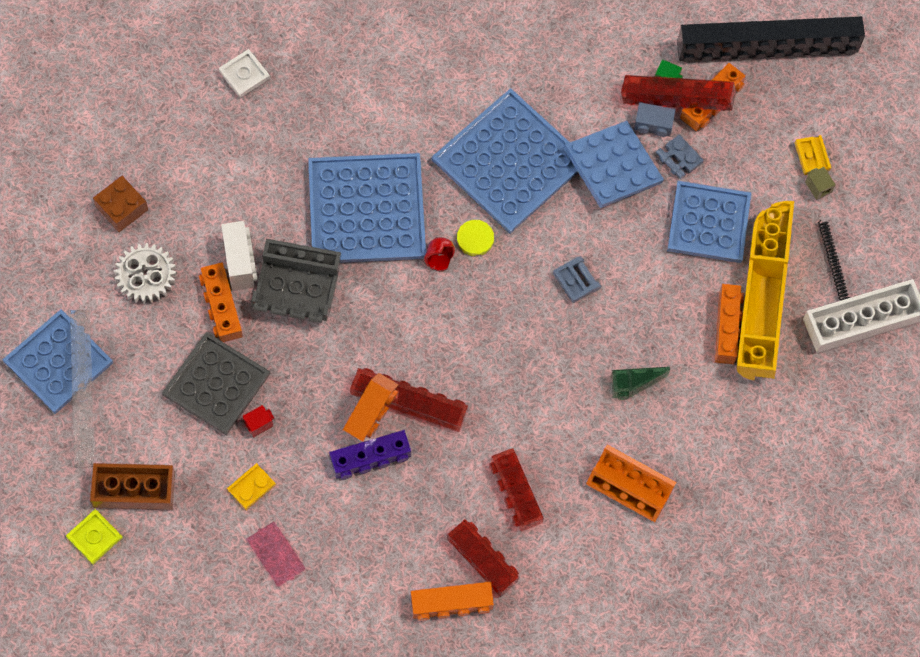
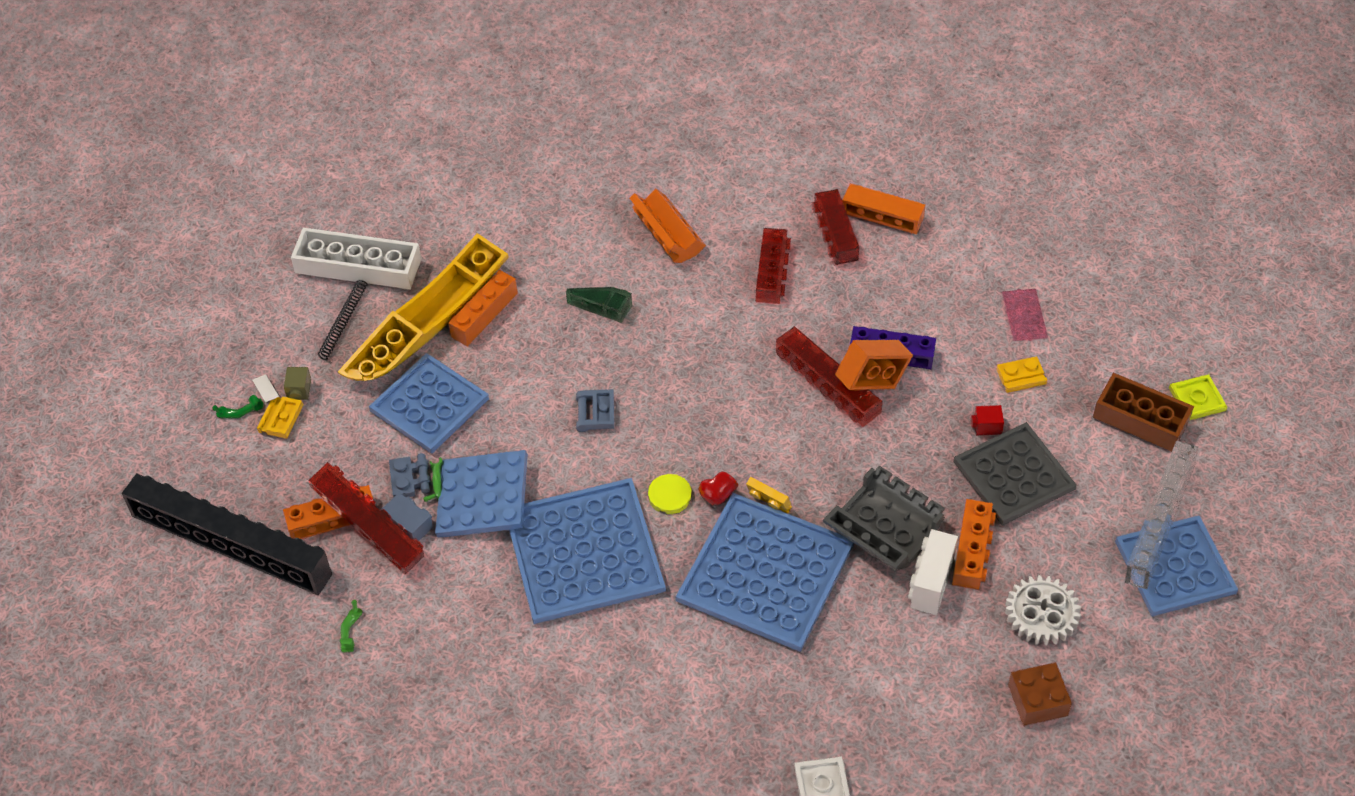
camera: 145 degrees left, 15 degrees down
(396, 264) = (769, 495): none -> yellow plate
(640, 34) = (354, 614): none -> bright green piece
(655, 159) = (437, 487): none -> bright green piece
(668, 70) = (357, 556): green brick -> none
(843, 172) = (265, 388): none -> white sticker
(856, 141) = (254, 404): none -> green piece

